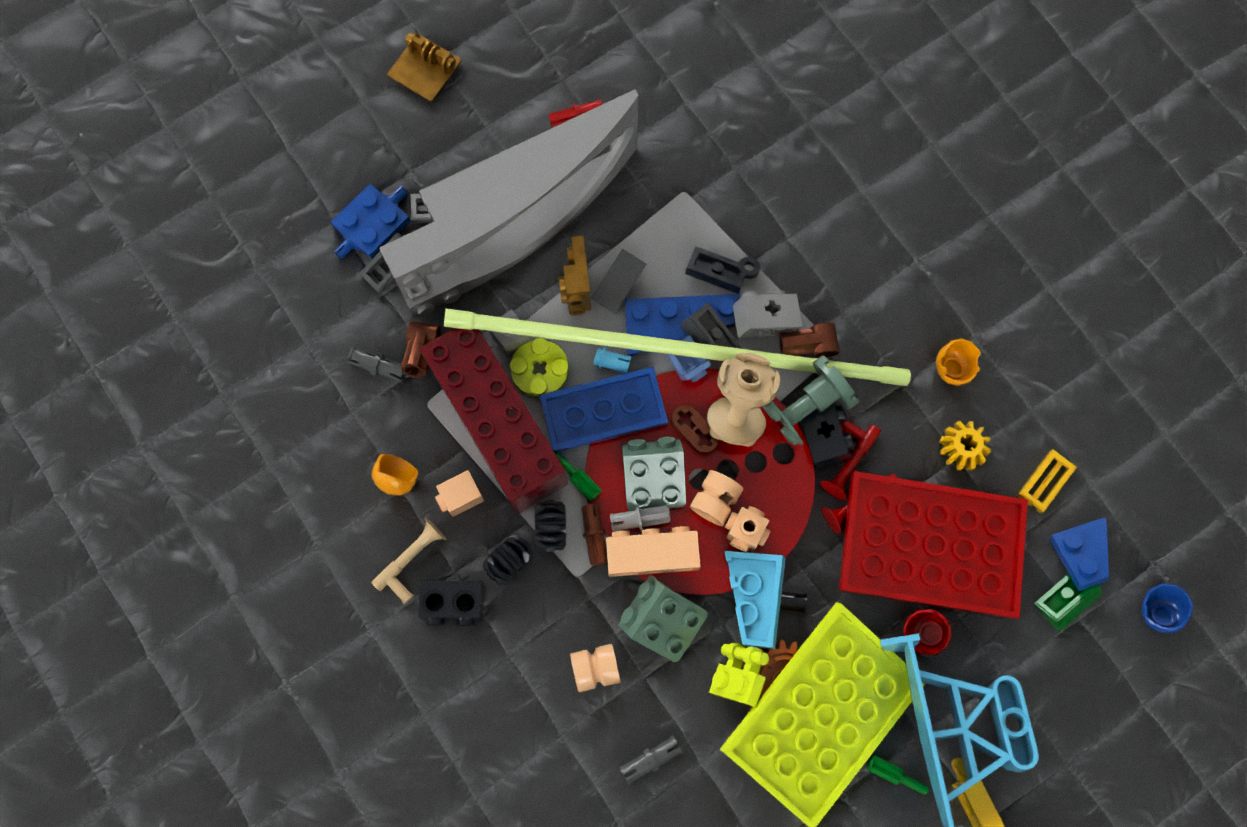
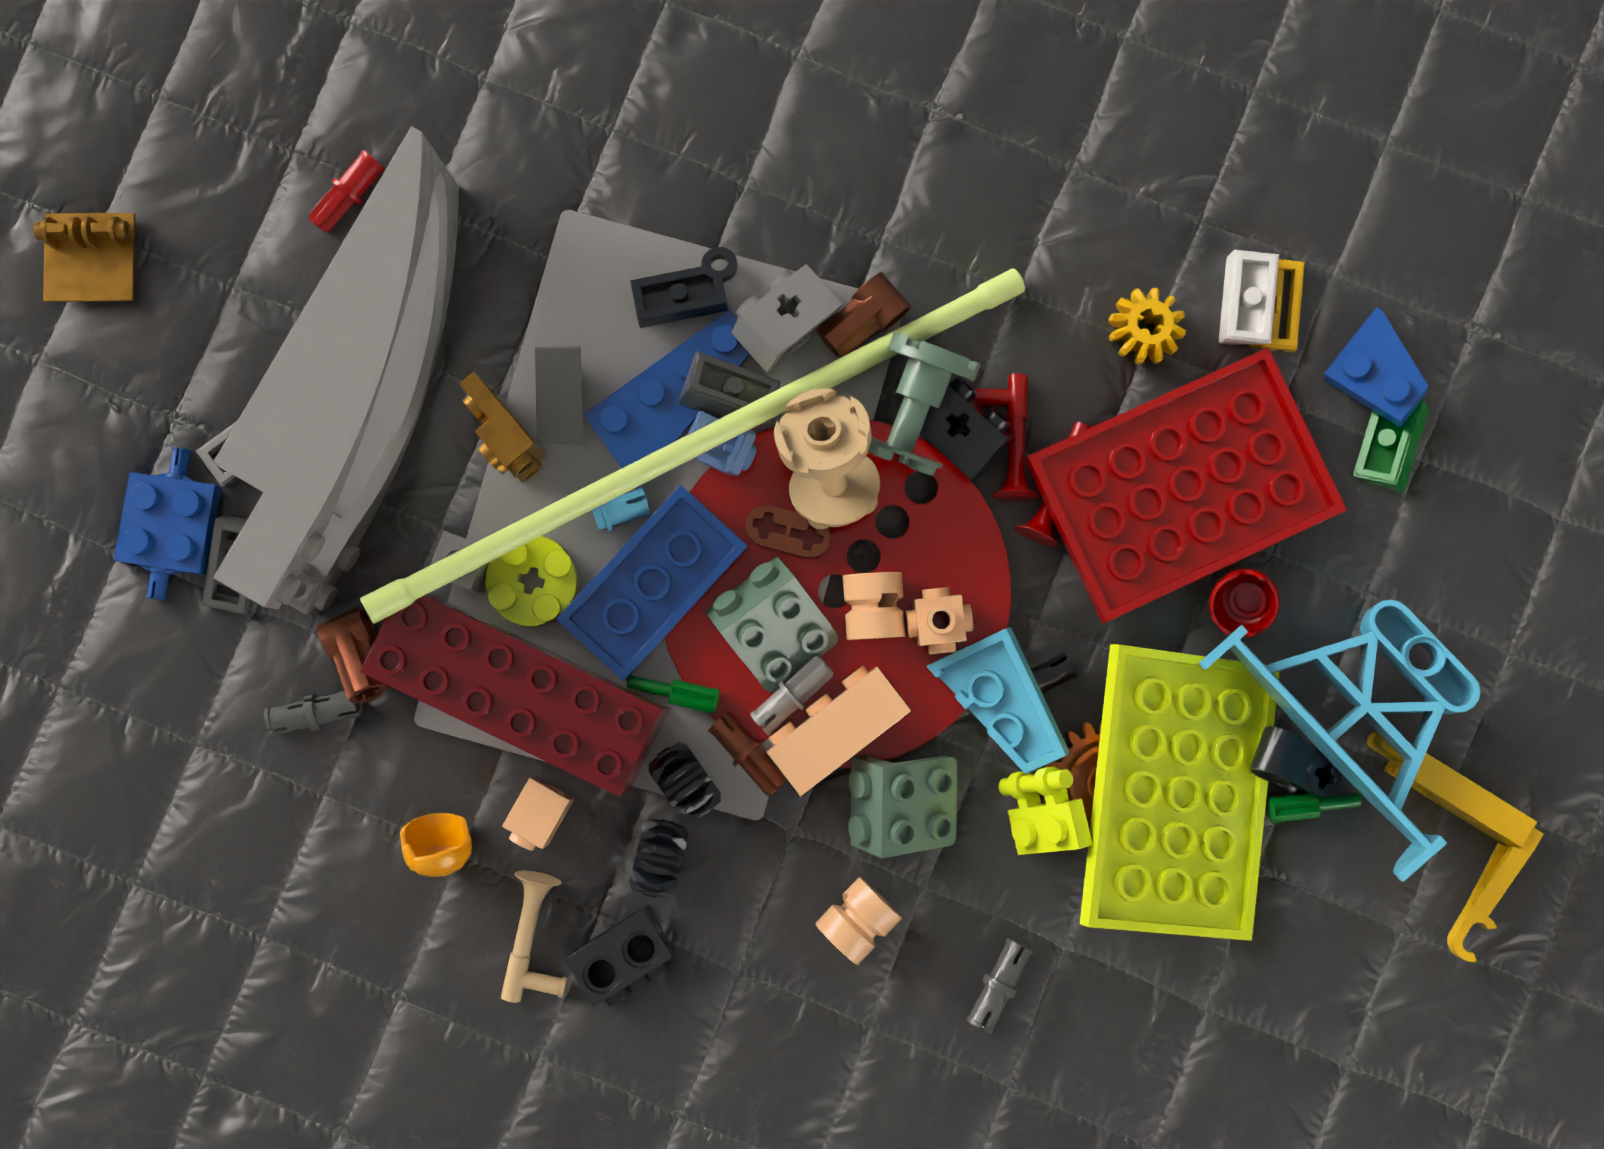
camera: 30 degrees left, 10 degrees up
(900, 742) = (1294, 764): none -> black piece
(958, 362) = (1071, 219): light orange hair -> none
(1033, 466) = (1248, 298): none -> white slope
(1167, 608) = (1522, 379): blue hair -> none

